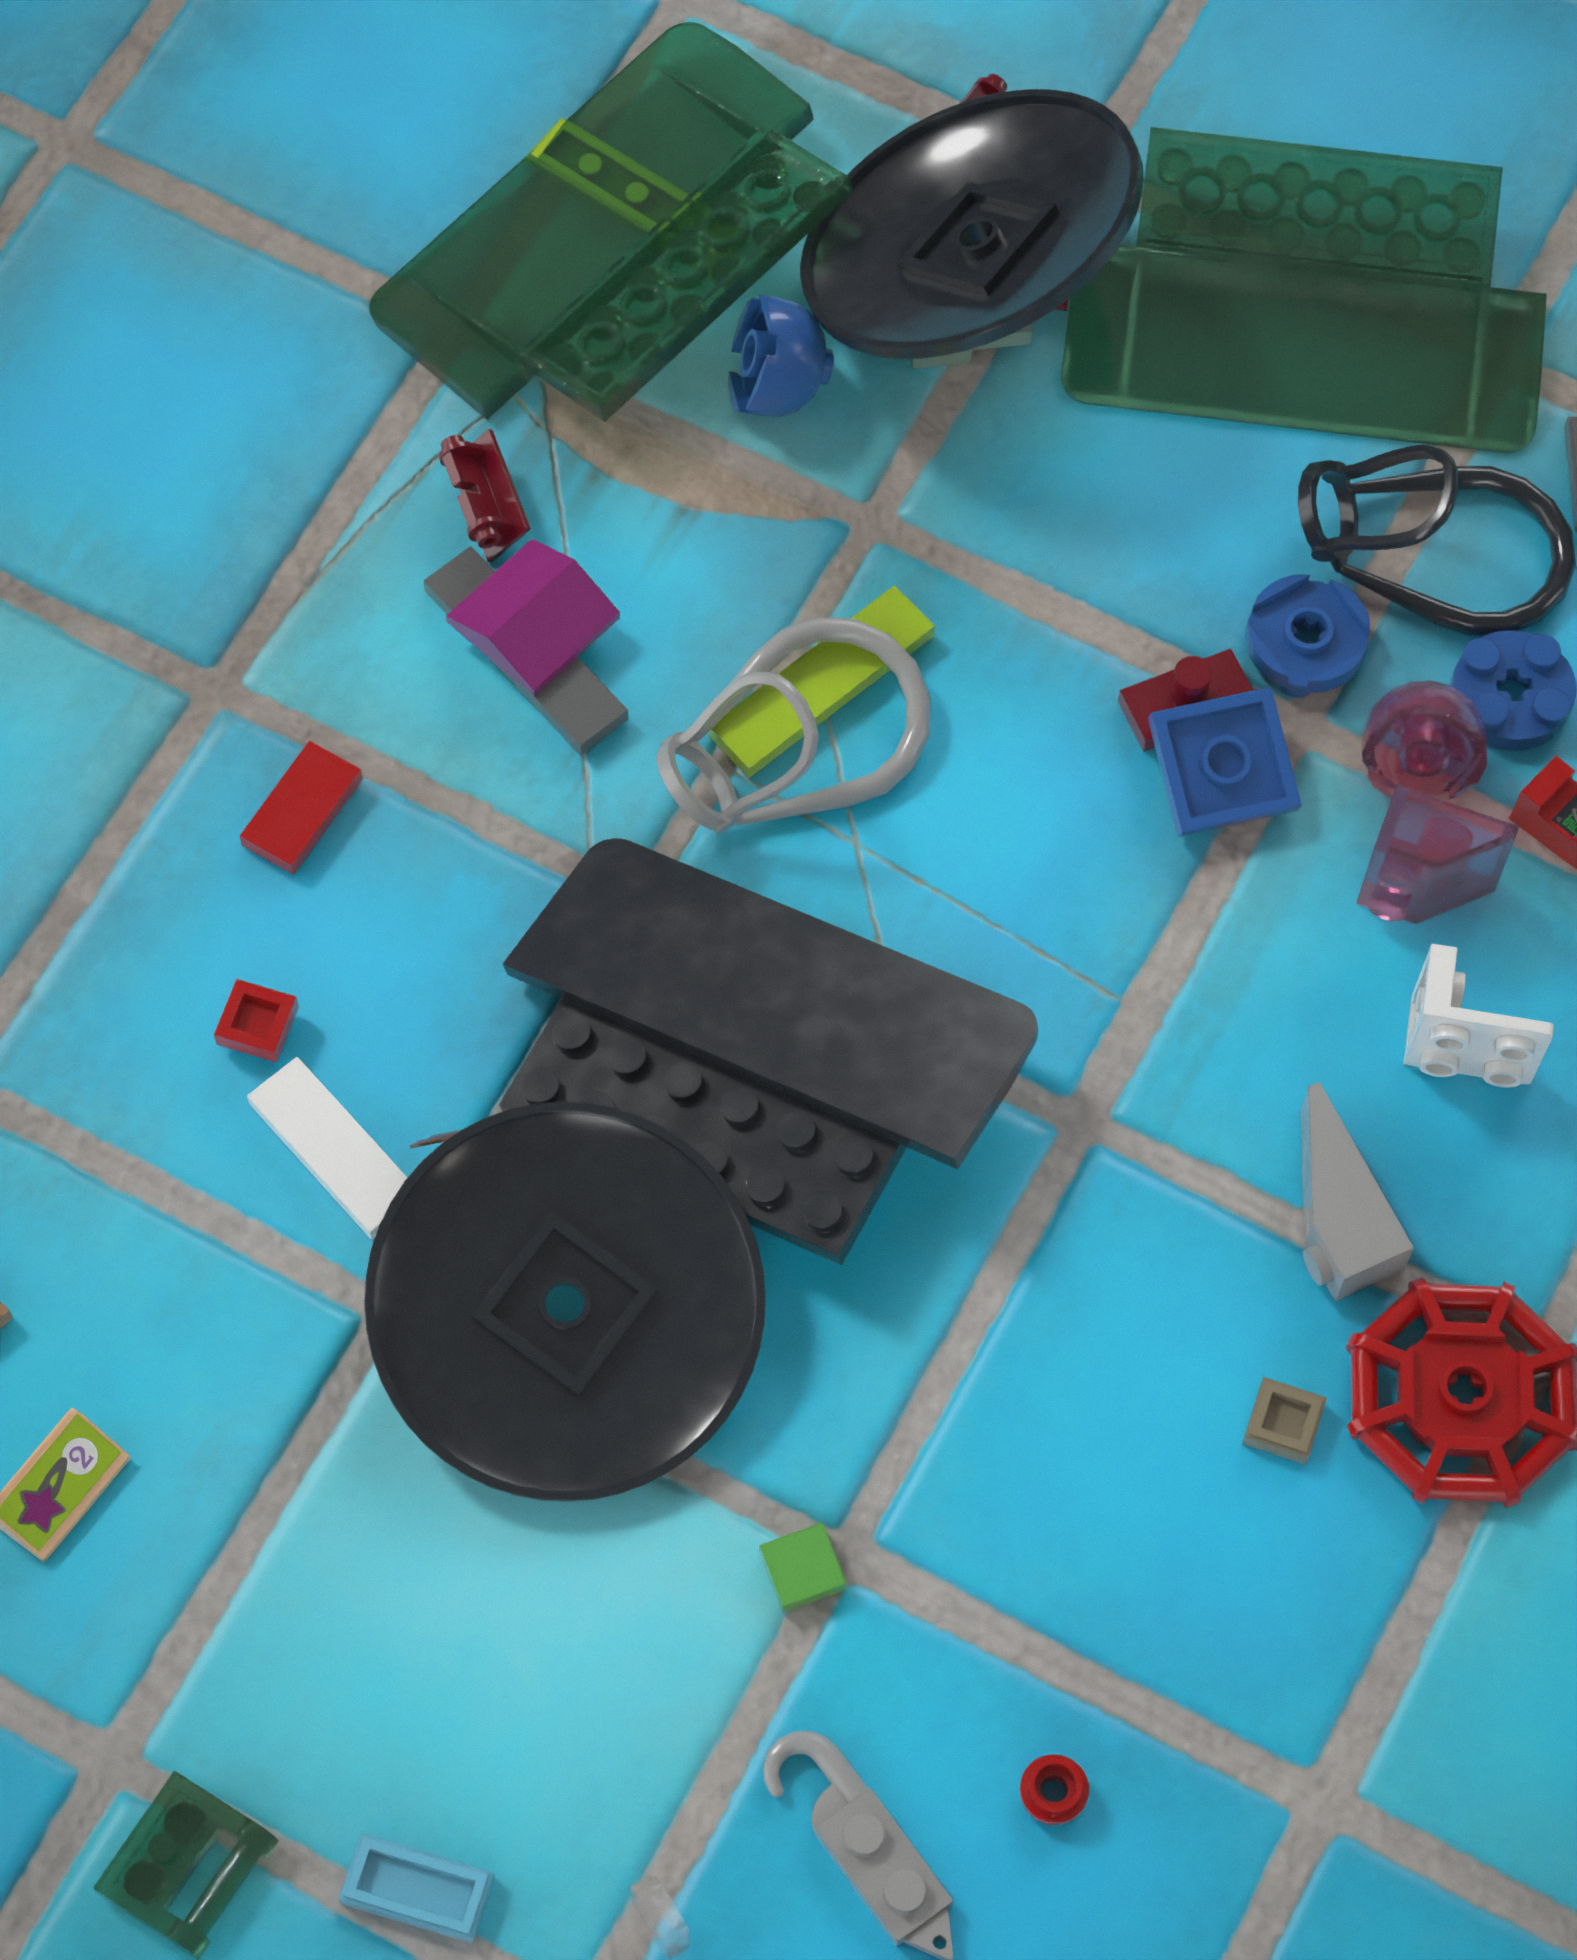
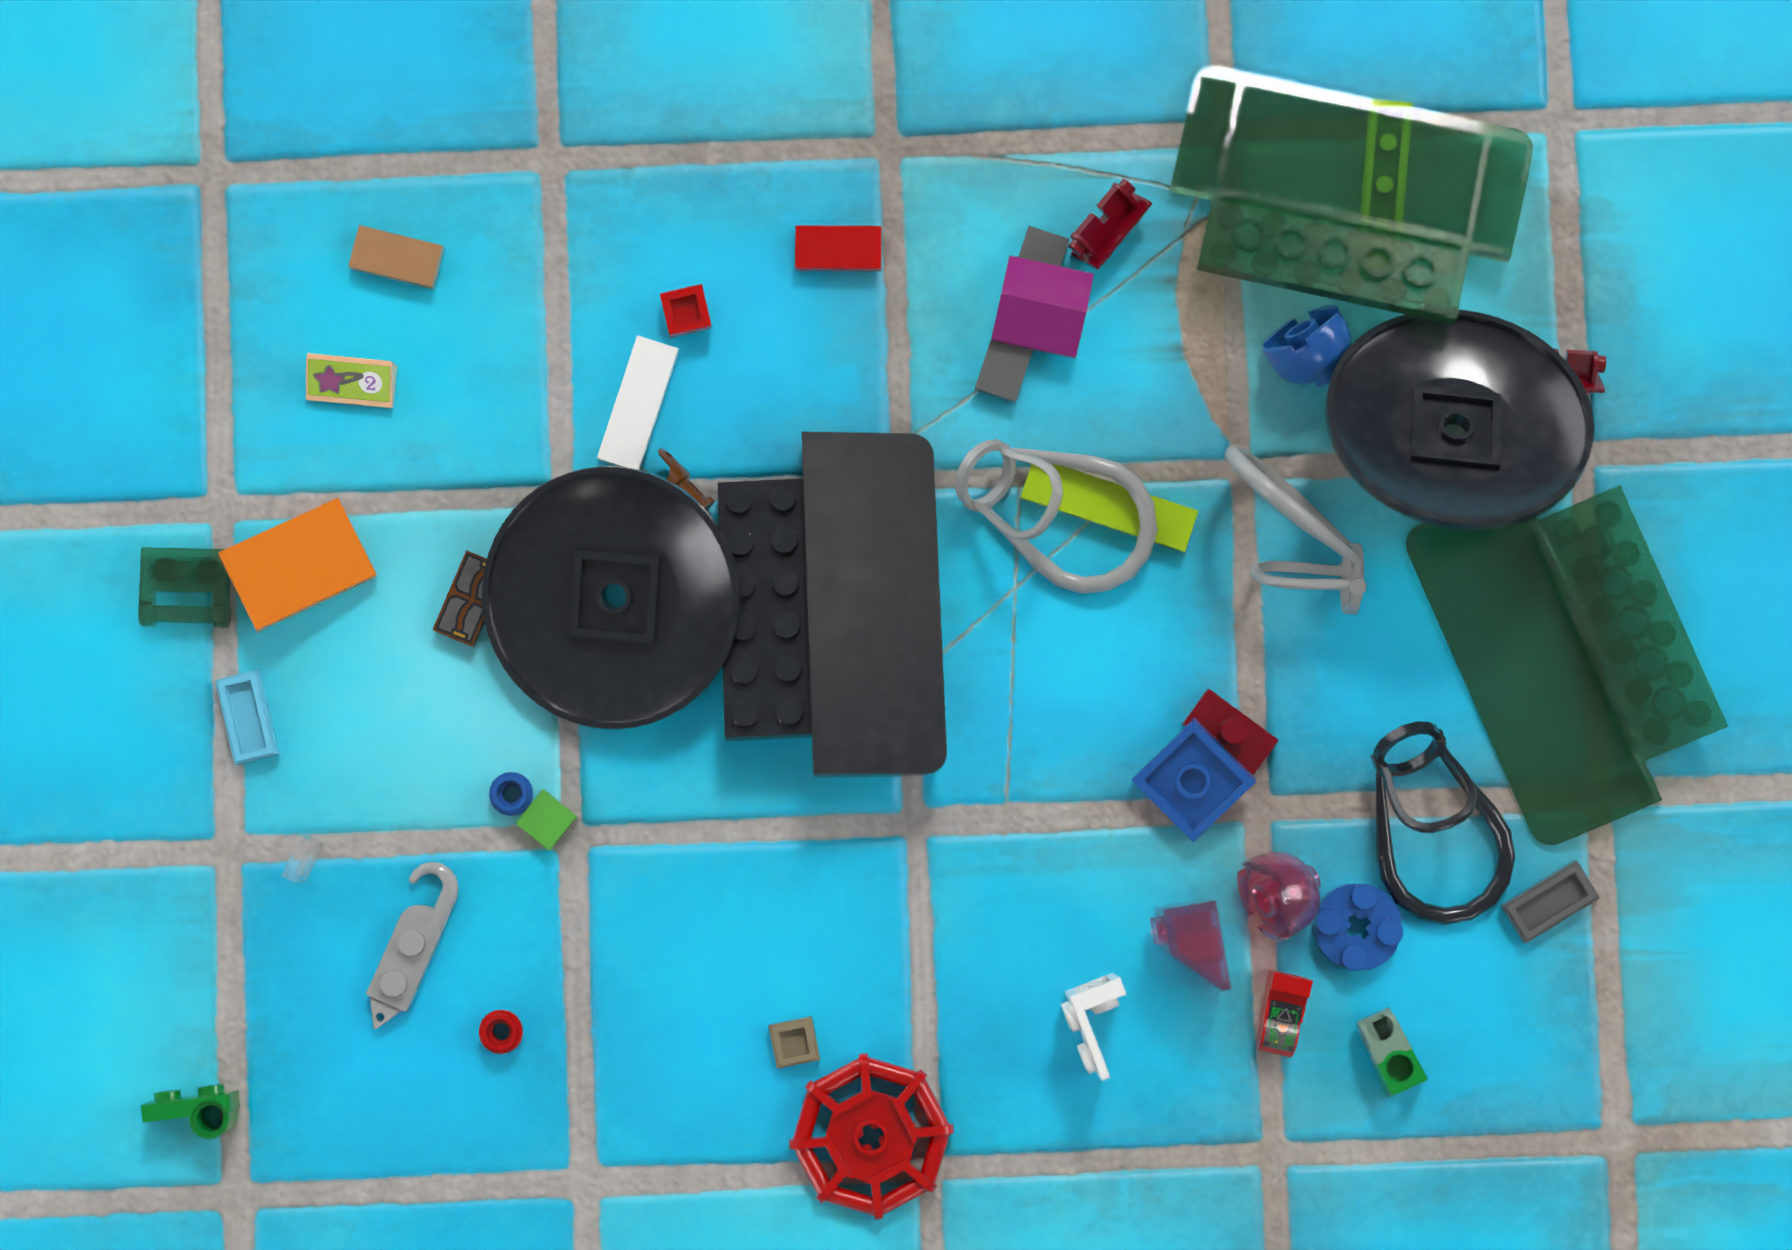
camera: 60 degrees right, 20 degrees up
(256, 1692) = (297, 565): none -> orange tile
(447, 1504) = (462, 609): none -> tile
(740, 1572) = (498, 788): none -> blue plate
(1068, 475) = (1308, 518): none -> light grey animal
(1302, 666) = (1341, 772): blue plate -> none
(1347, 1220) = (938, 1009): light grey slope -> none

